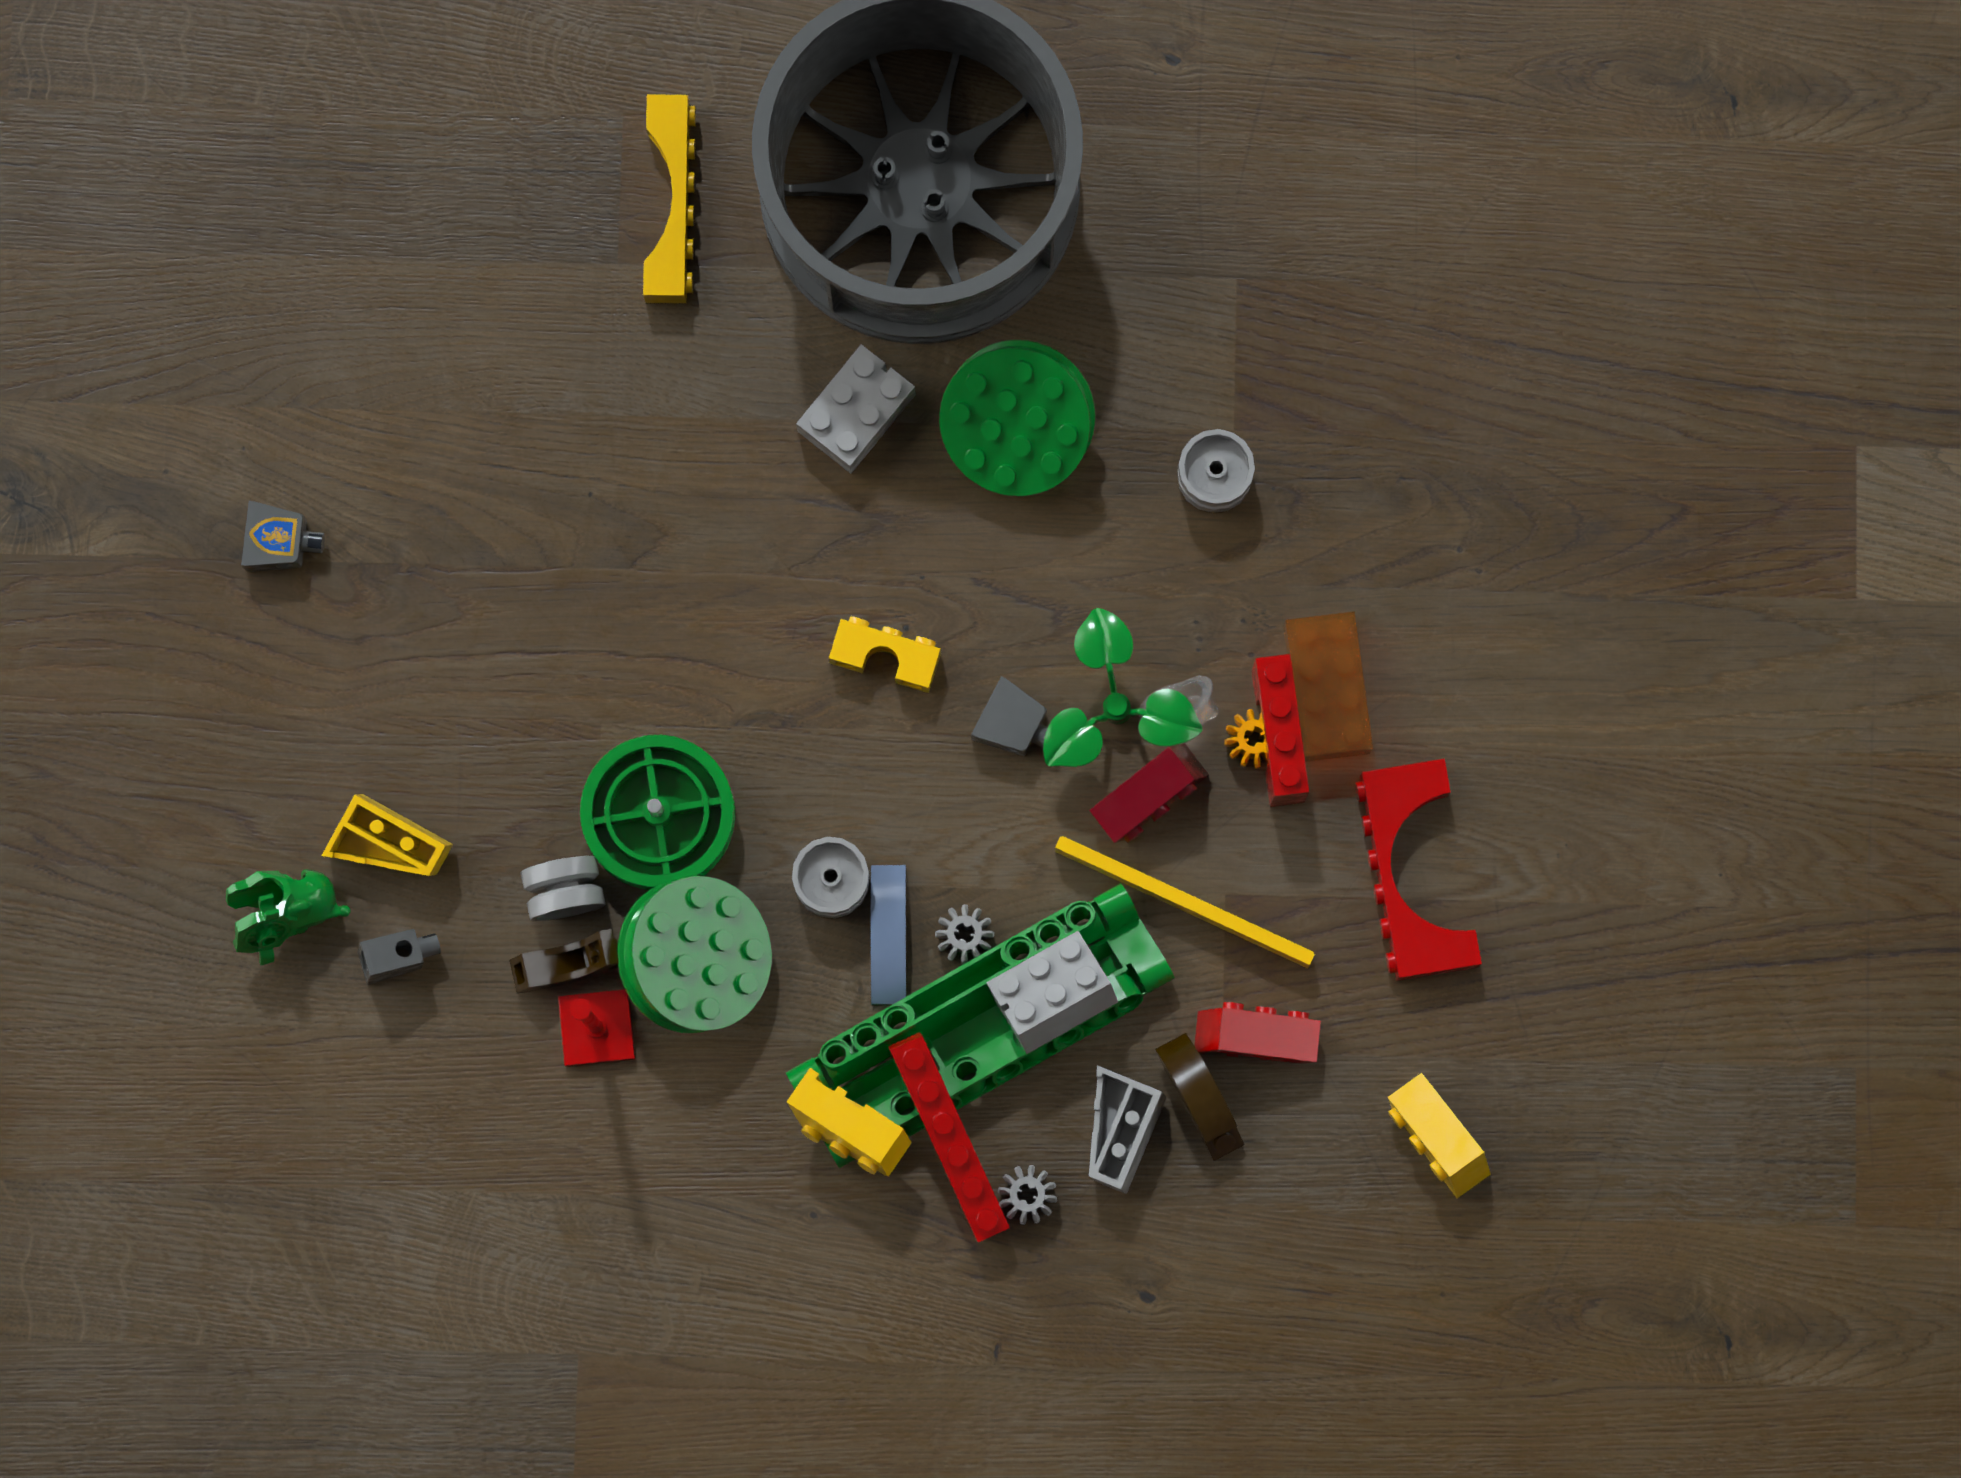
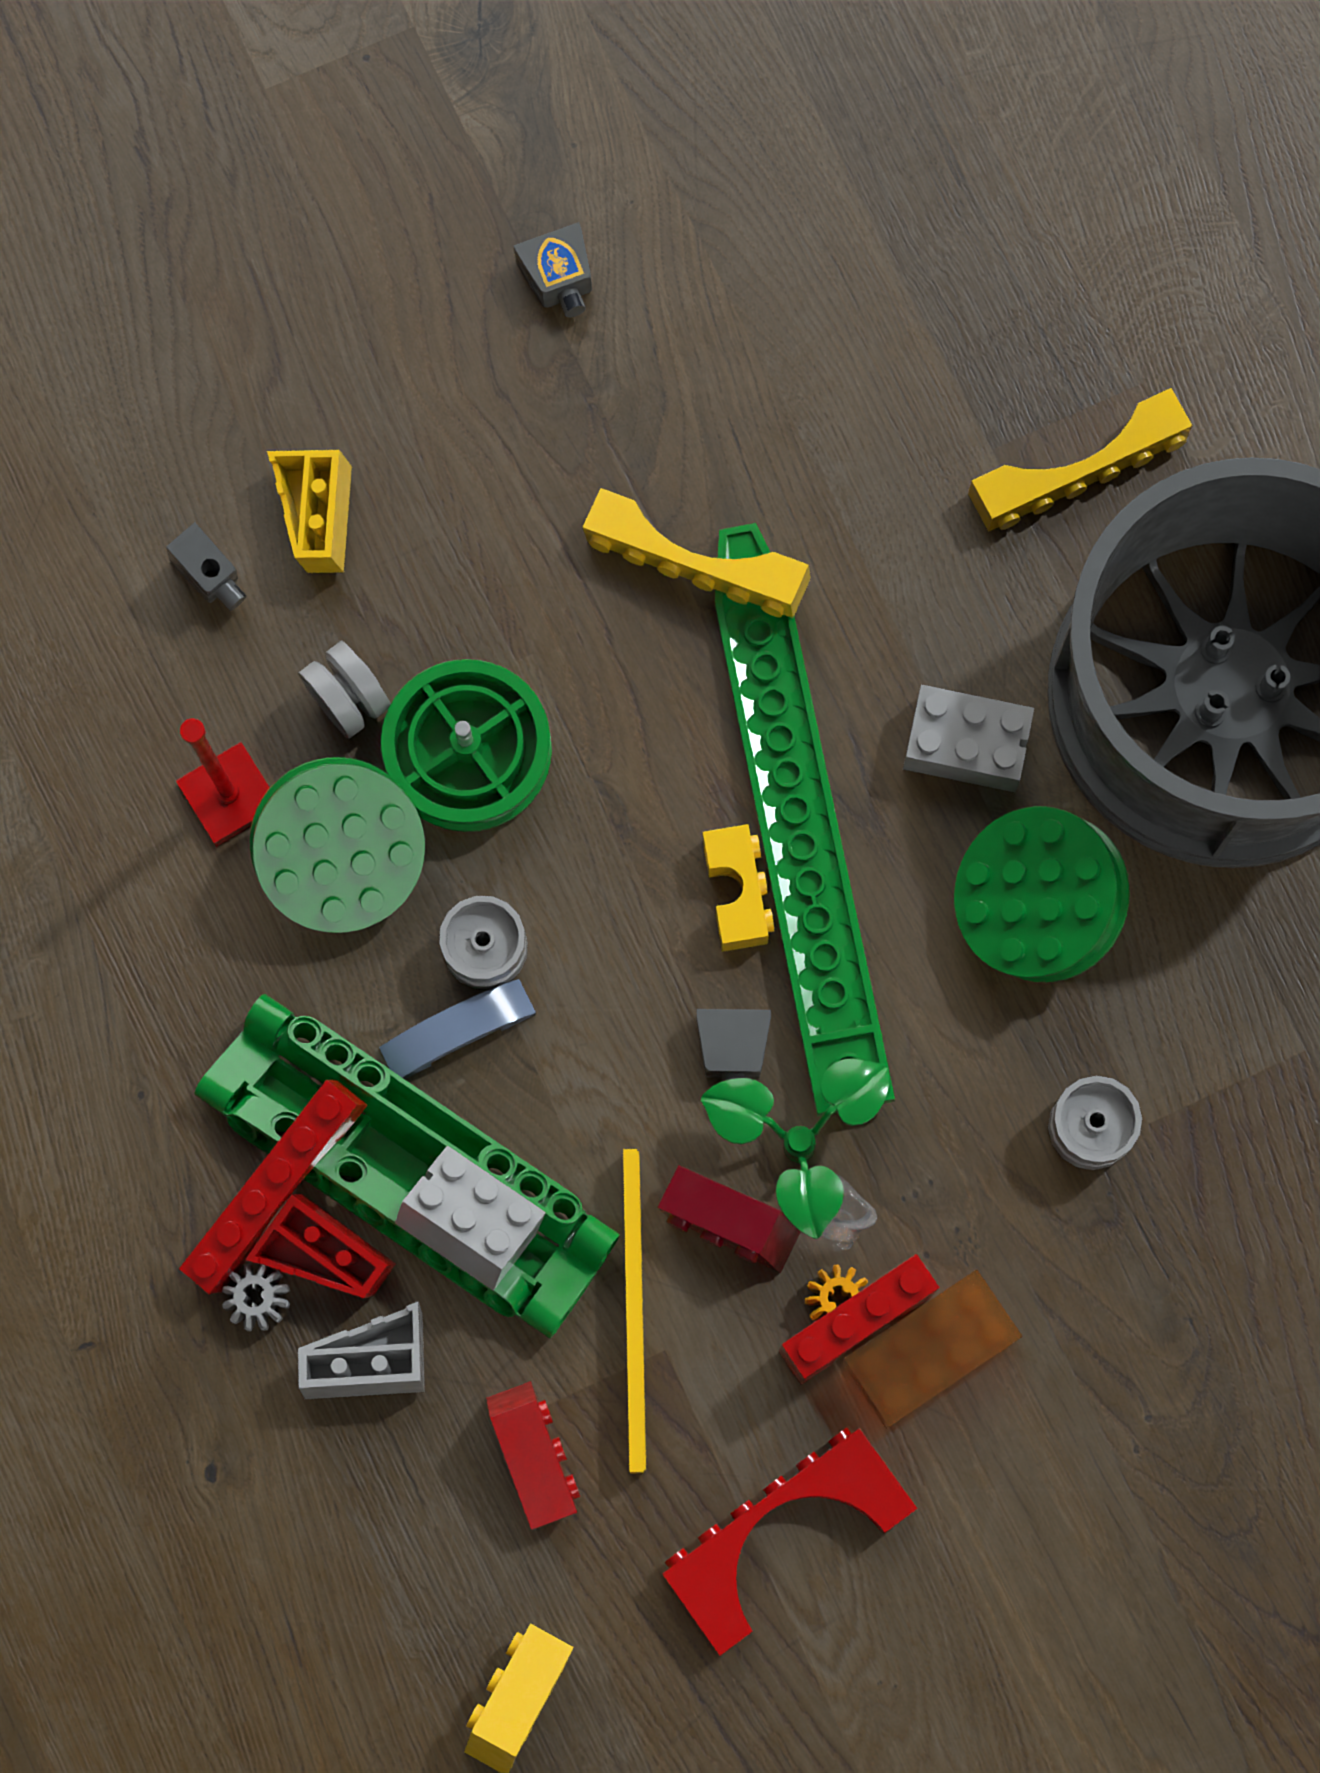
camera: 65 degrees right, 5 degrees down
(285, 909) = (201, 452): green helmet -> none
(565, 963) = (272, 727): dark brown arch -> none
(644, 502) = (765, 580): none -> yellow arch
(840, 575) = (798, 829): none -> green wedge
(847, 1125) = (234, 1076): yellow wedge -> none
(968, 923) = (506, 1100): light grey gear -> none
(1016, 1124) = (321, 1249): none -> red wedge
(1200, 1096) = (438, 1424): dark brown arch -> none

